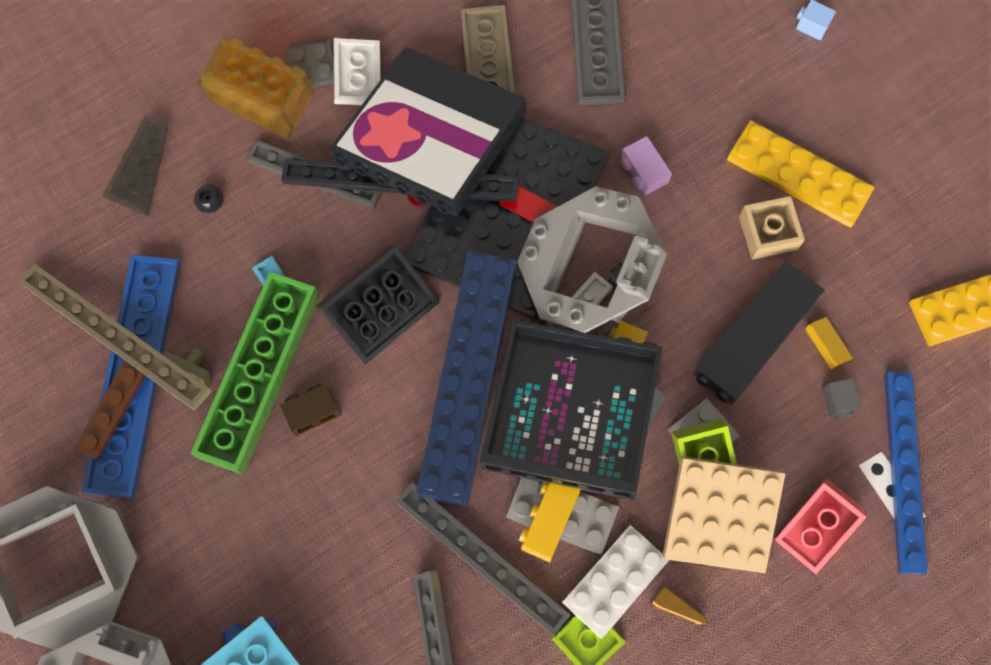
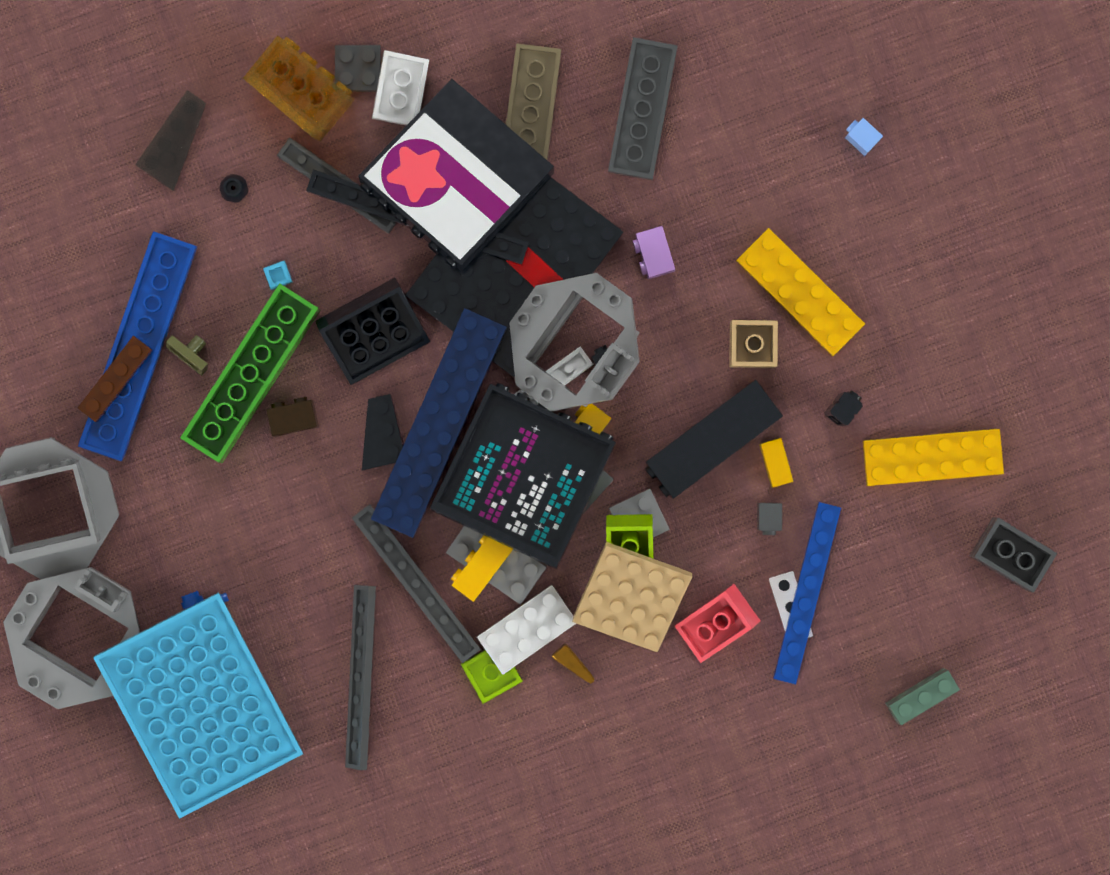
camera: 10 degrees right, 15 degrees up
(115, 337) = (126, 310): dark tan plate -> none
(409, 407) = (382, 434): none -> black wing
(884, 268) = (844, 408): none -> black brick

